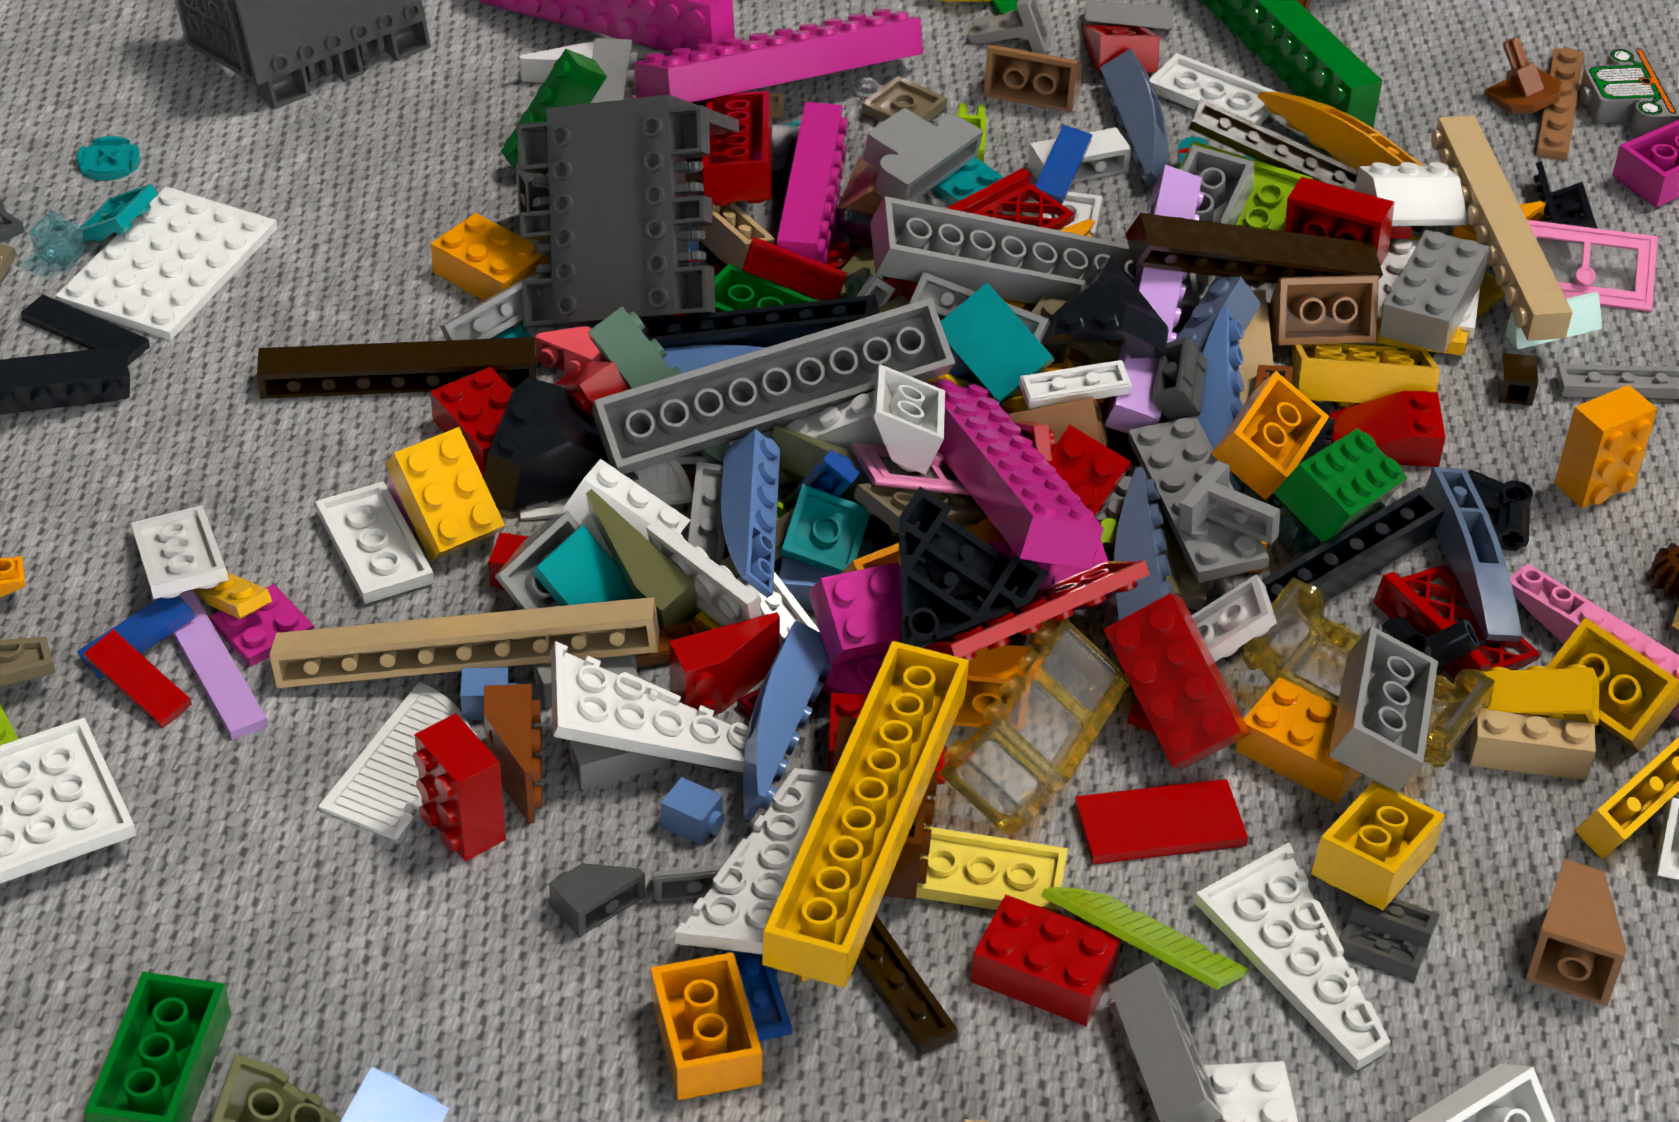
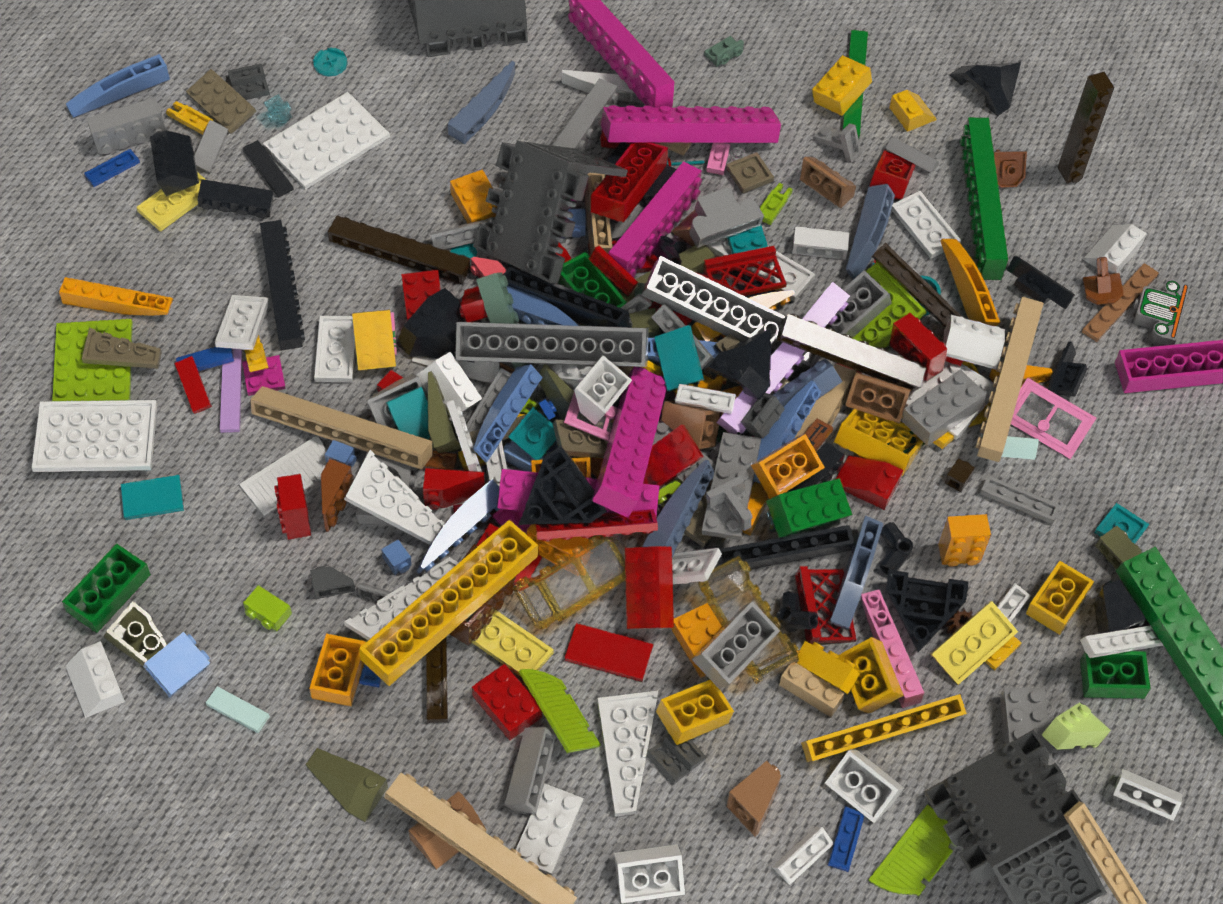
camera: 25 degrees right, 15 degrees up
(117, 213) = (313, 103): teal plate -> none
(158, 886) = (152, 497): none -> teal tile
(217, 481) = (281, 285): none -> black brick
(411, 144) = (481, 107): none -> sand blue slope
(500, 980) = (267, 608): none -> lime brick
(571, 82) = (551, 120): green brick -> none
(843, 93) = (718, 158): none -> bright pink plate
(1040, 435) = (663, 425): plate -> none
(1063, 162) = (802, 248): blue tile -> none
(1422, 110) = (1037, 284): none -> black bracket
(1493, 29) = (1118, 246): none -> white slope
(1614, 560) = (924, 604): none -> black wedge

